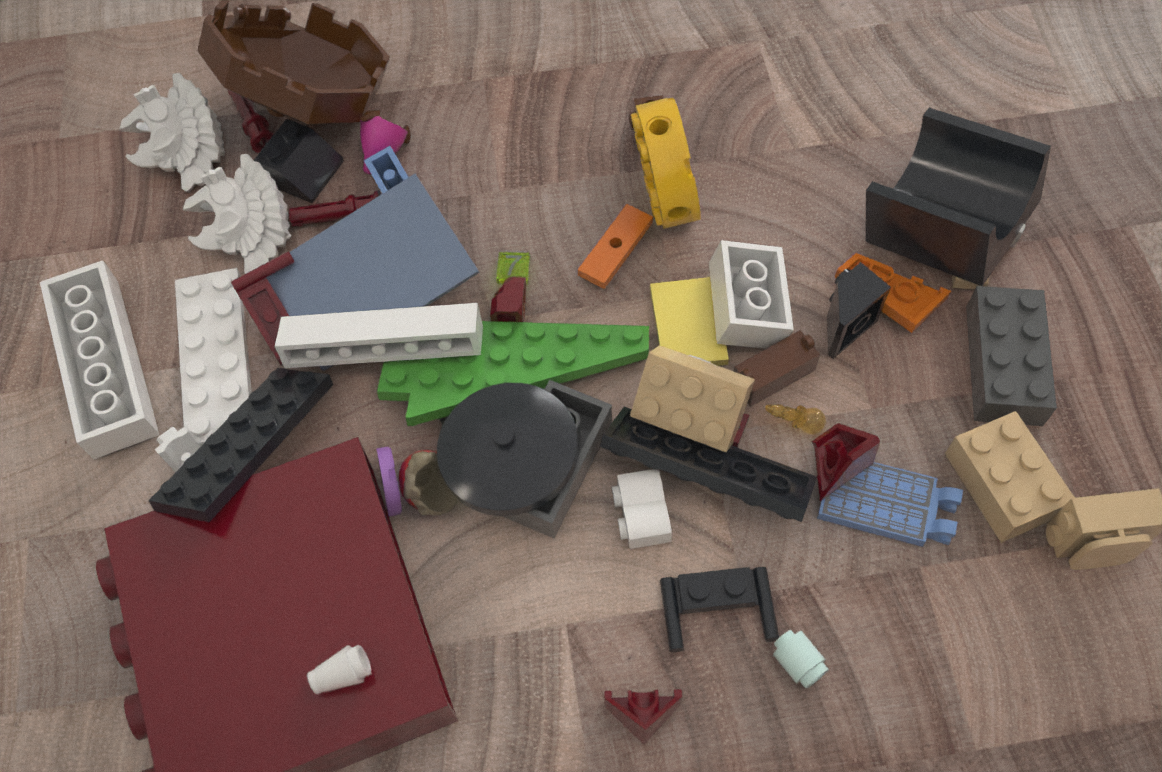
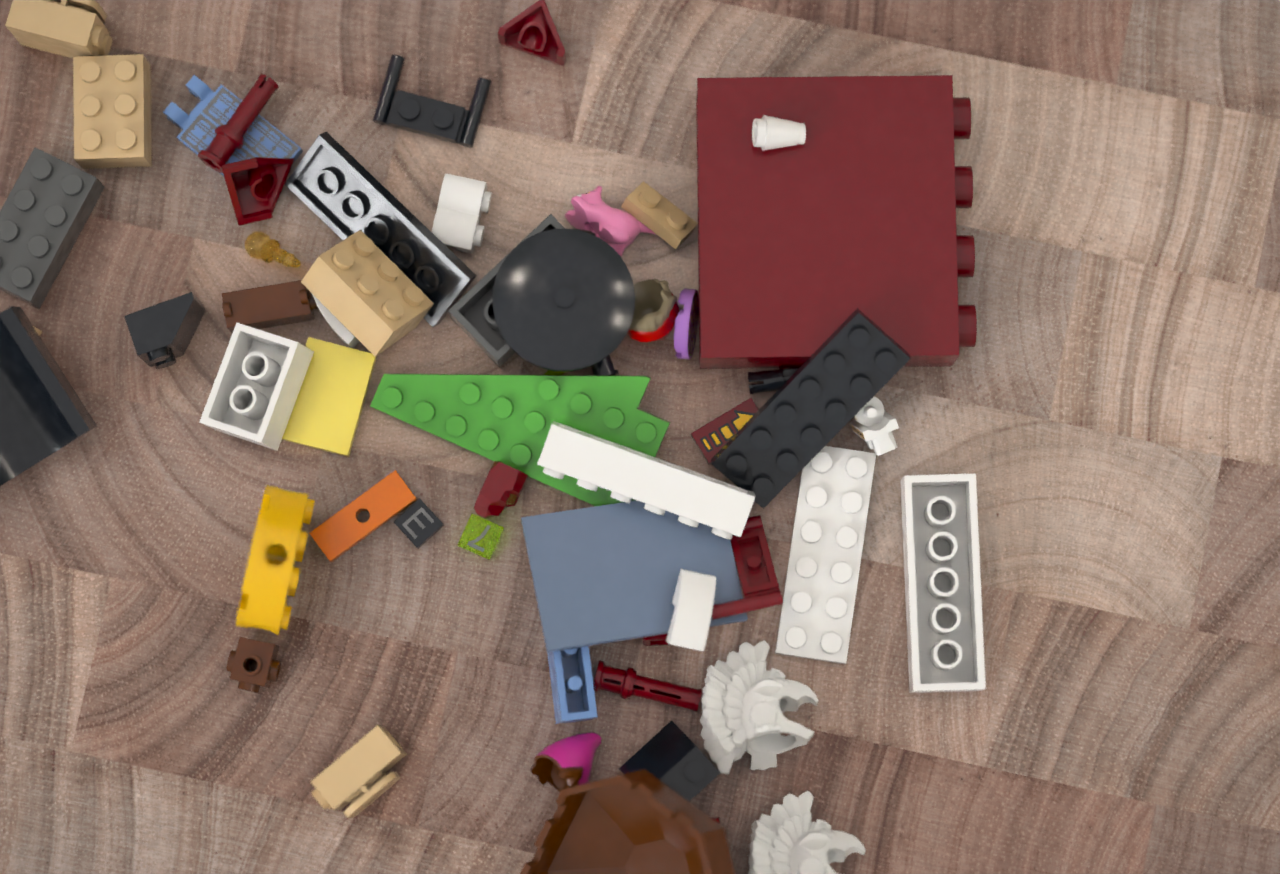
camera: 160 degrees left, 20 degrees up
(304, 247) = (692, 610): none -> white slope
(326, 420) = (719, 431): none -> dark red tile
(451, 579) = (659, 215): none -> tan plate
(492, 548) = (607, 223): none -> bright pink animal
(535, 76) = (360, 773): none -> tan brick
(567, 259) = (418, 523): none -> black tile
(800, 658) = (383, 27): light aqua brick -> none
(888, 488) = (230, 136): none -> dark red pin
(908, 299) = (105, 344): orange wing -> none

